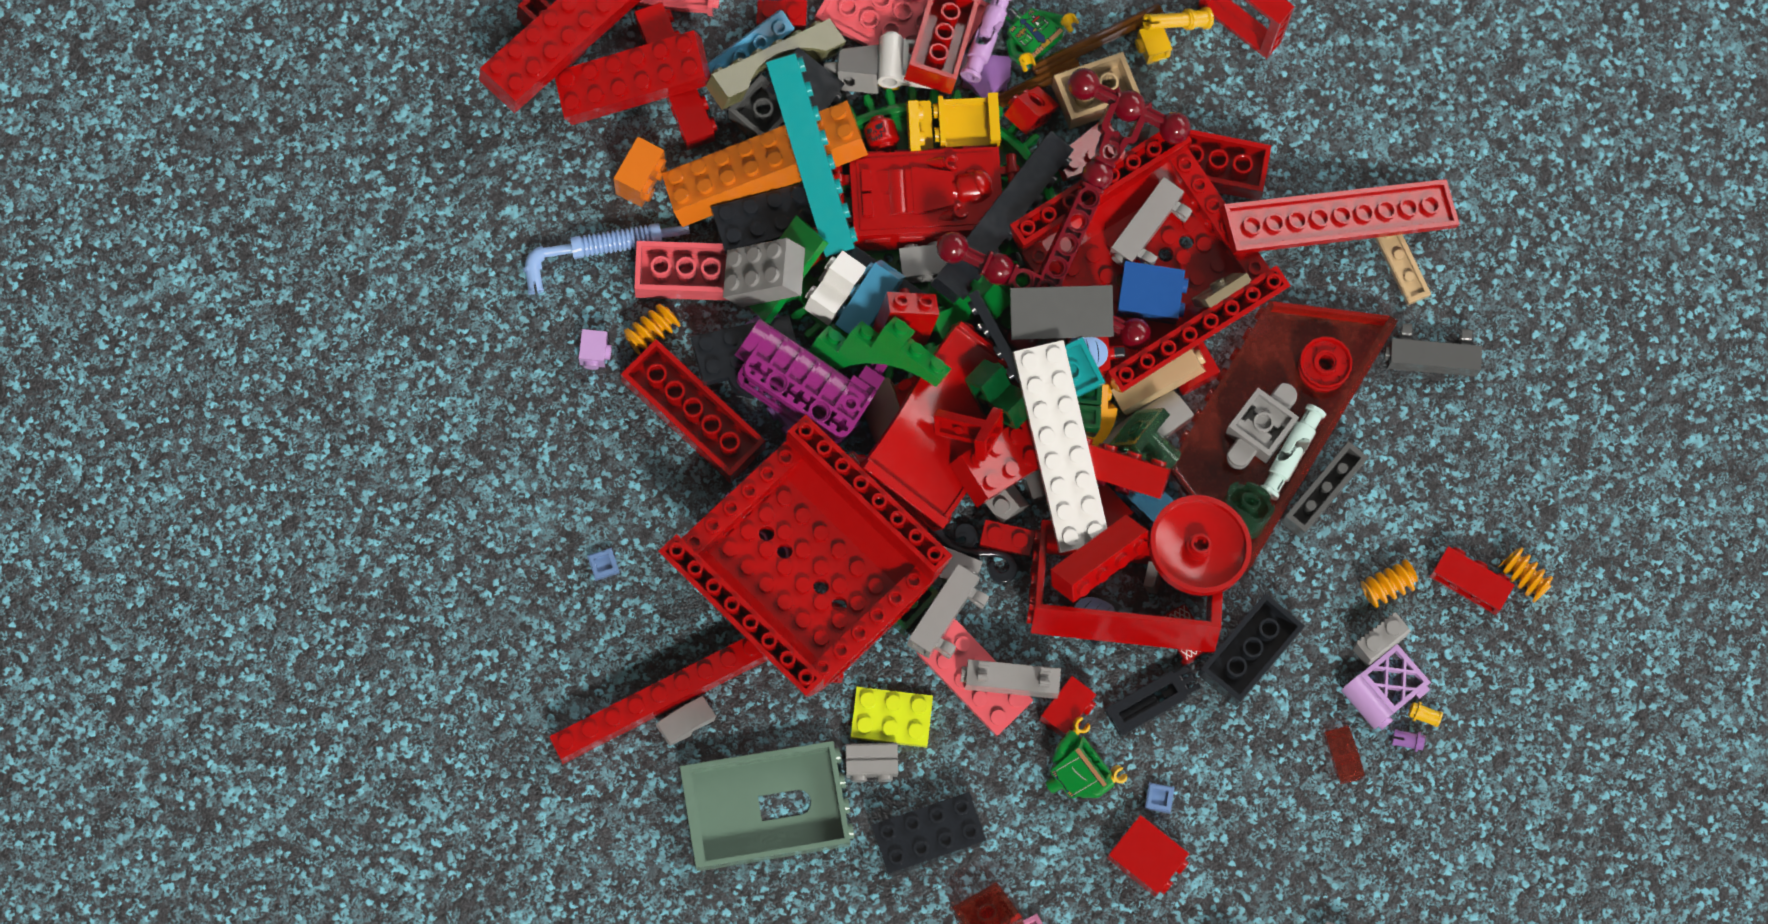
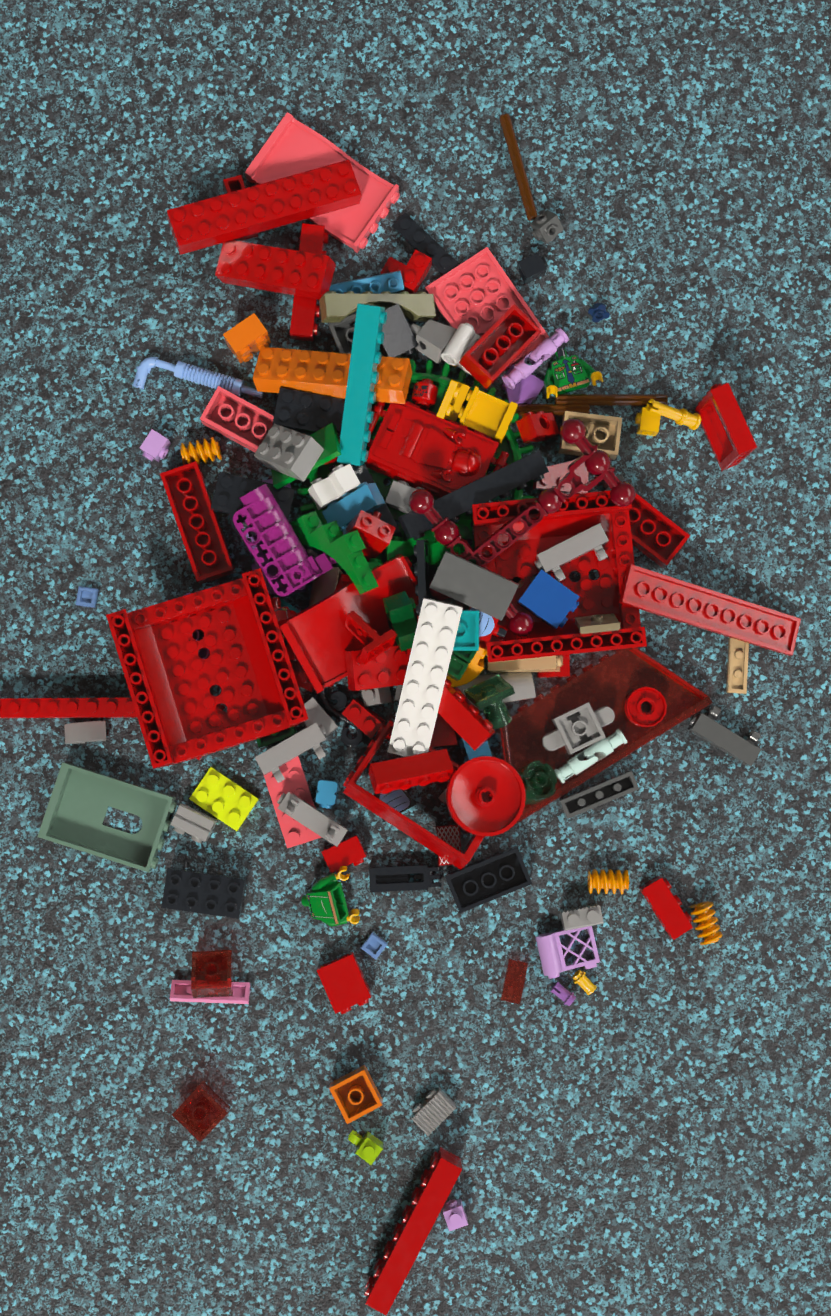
camera: 30 degrees right, 10 degrees up
(1012, 643) = (327, 793): none -> dark azure brick

